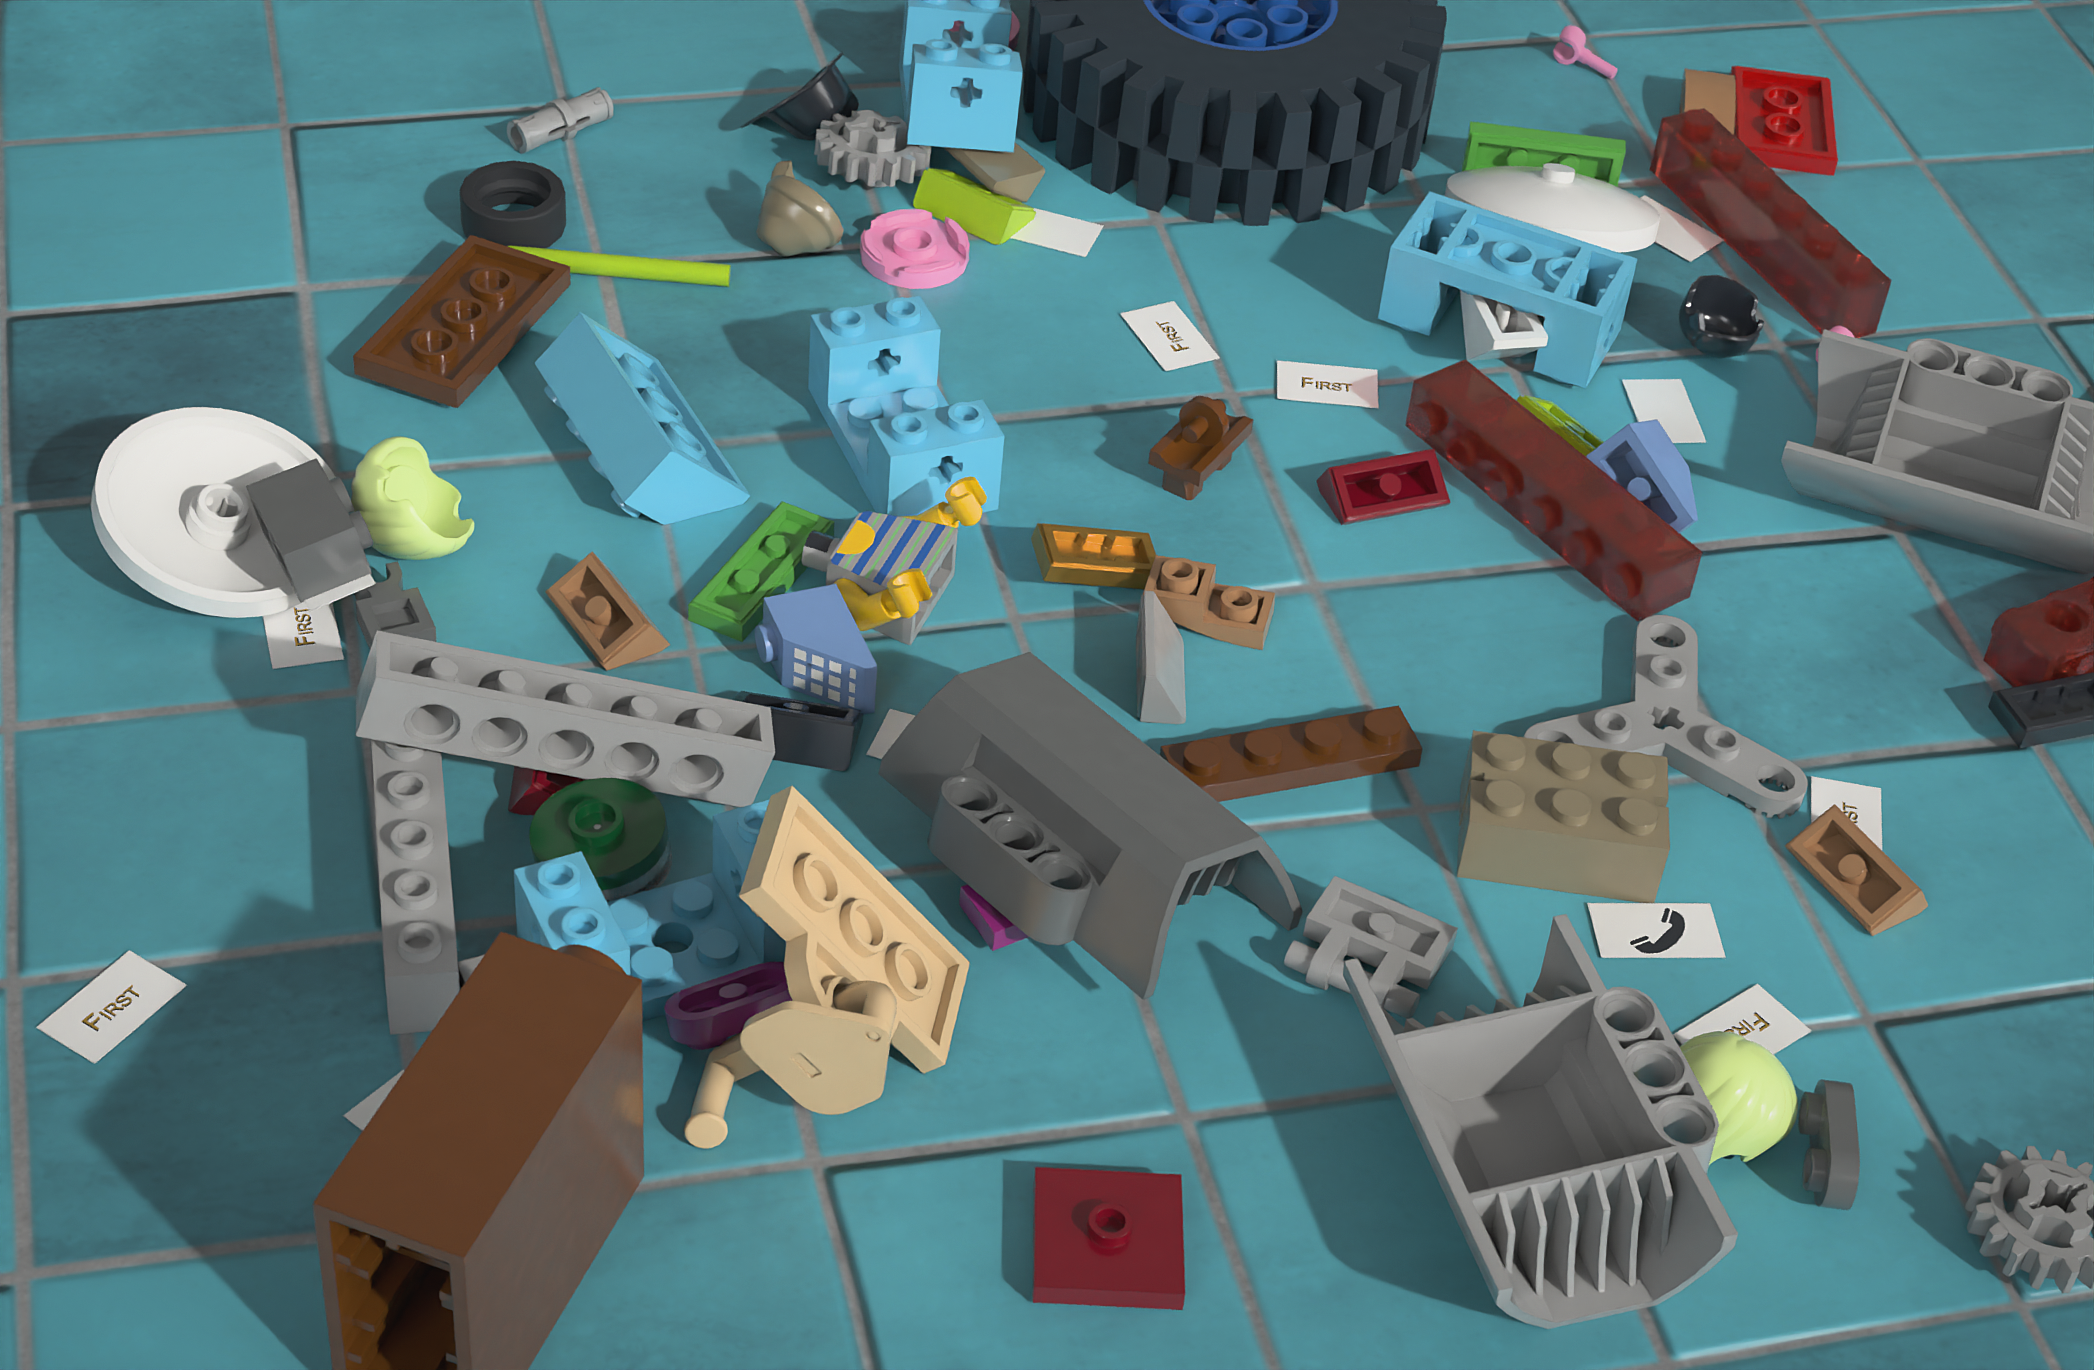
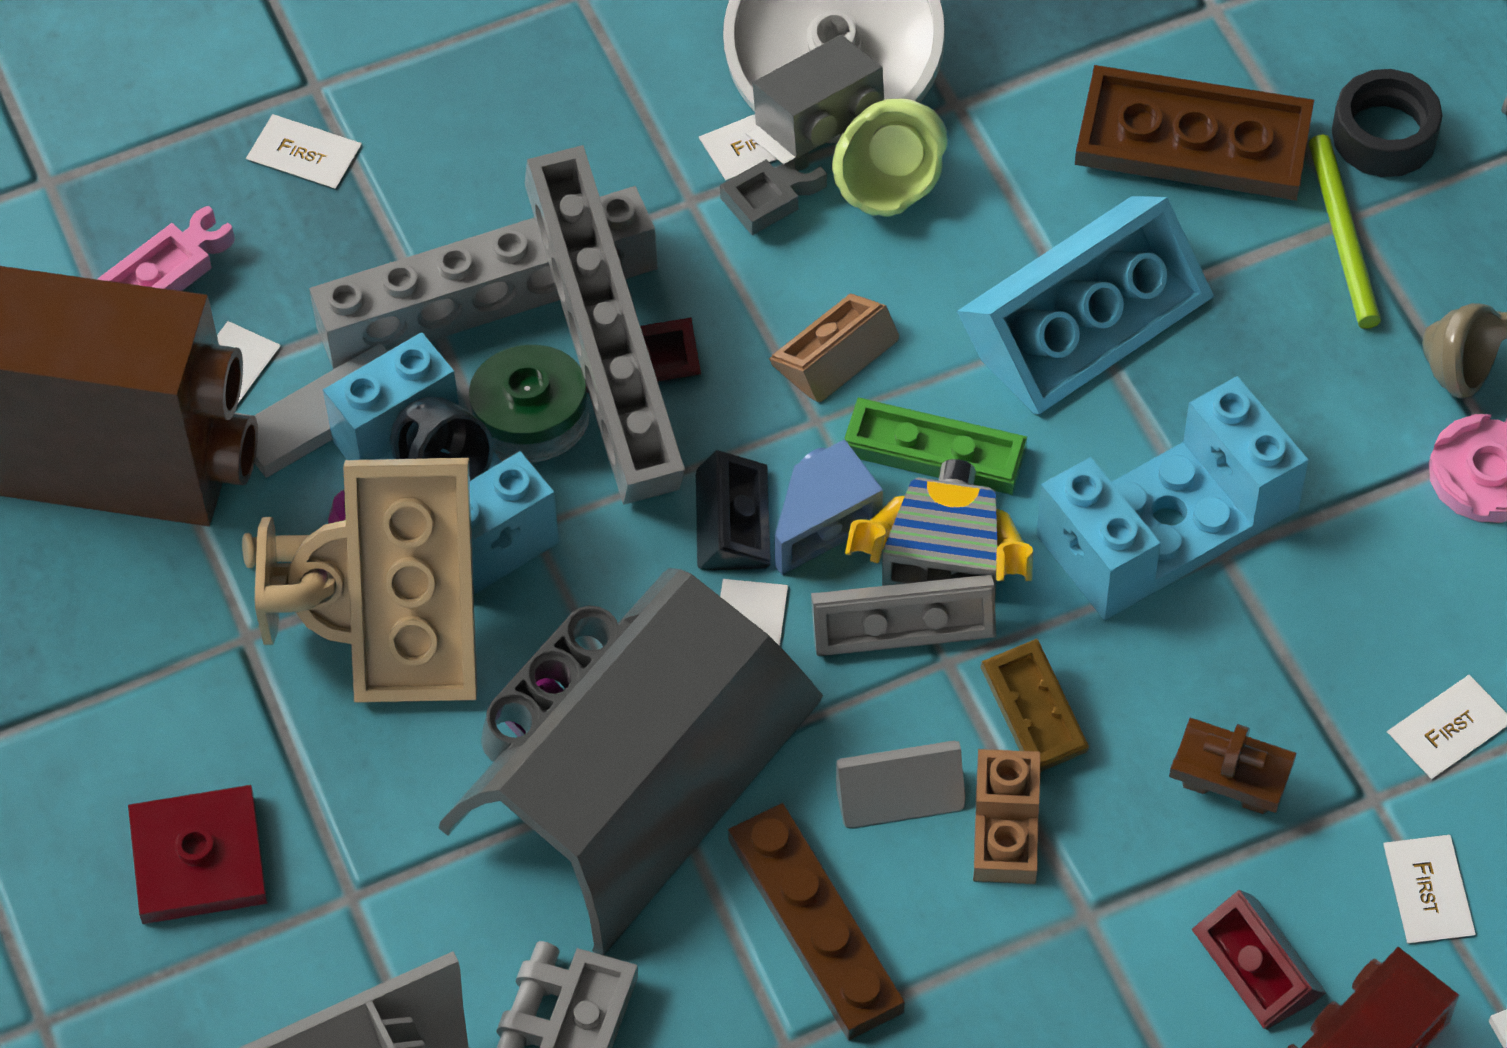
camera: 85 degrees right, 15 degrees up
(249, 1158) = (174, 257): none -> bright pink plate
(666, 887) = (455, 428): none -> black helmet
(971, 607) = (904, 615): none -> light grey tile

